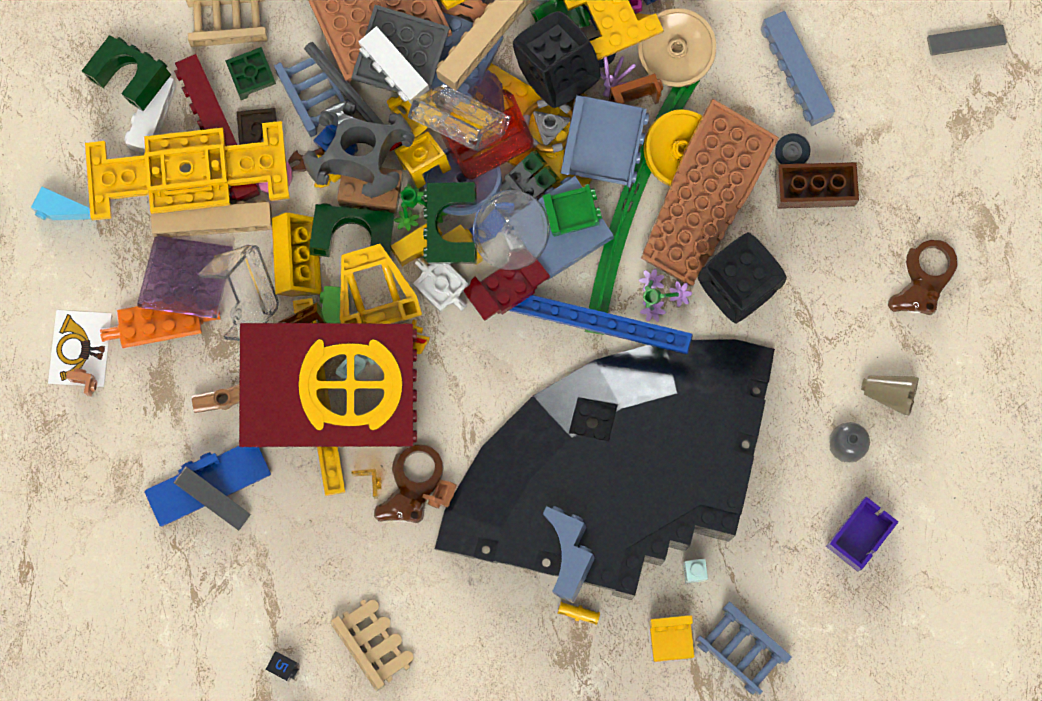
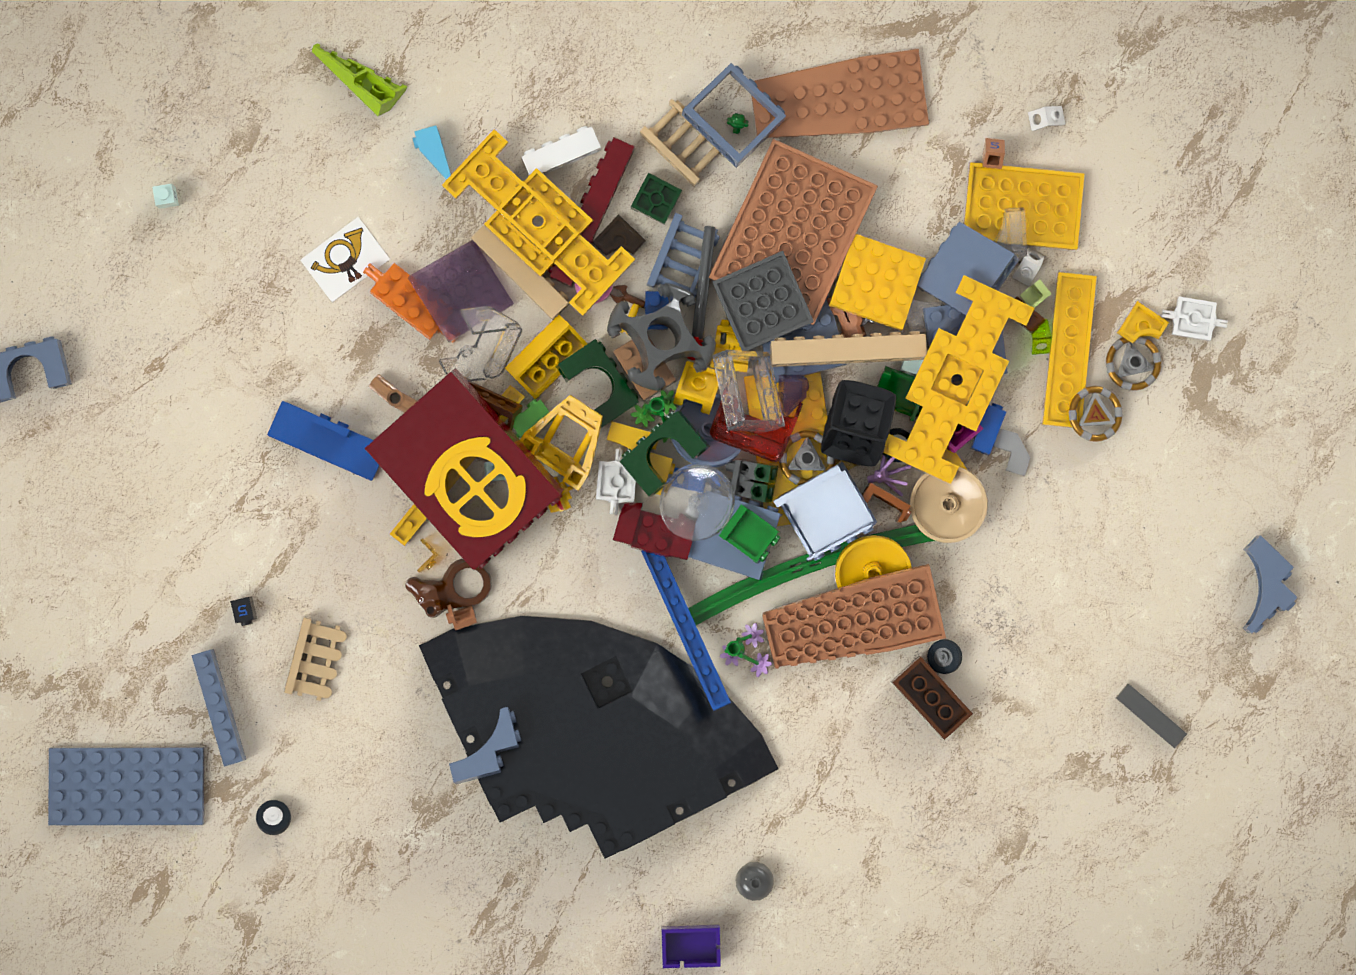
camera: 50 degrees right, 10 degrees up
(82, 377) = (323, 279): nougat bracket -> none
(116, 54) = (585, 130): dark green arch -> none
(212, 498) = (316, 456): dark grey tile -> none
(393, 65) = (746, 307): white brick -> none
(578, 613) = (462, 792): yellow pin -> none
(671, 638) = (499, 870): yellow bracket -> none
(695, 571) = (561, 847): light aqua brick -> none
(742, 277) = (807, 703): black piece -> none
(762, 641) = (551, 919): sand blue fence -> none
(797, 68) = (1015, 606): sand blue brick -> none
(892, 391) = (818, 882): dark tan cone -> none
(924, 289) = (920, 842): reddish brown animal -> none

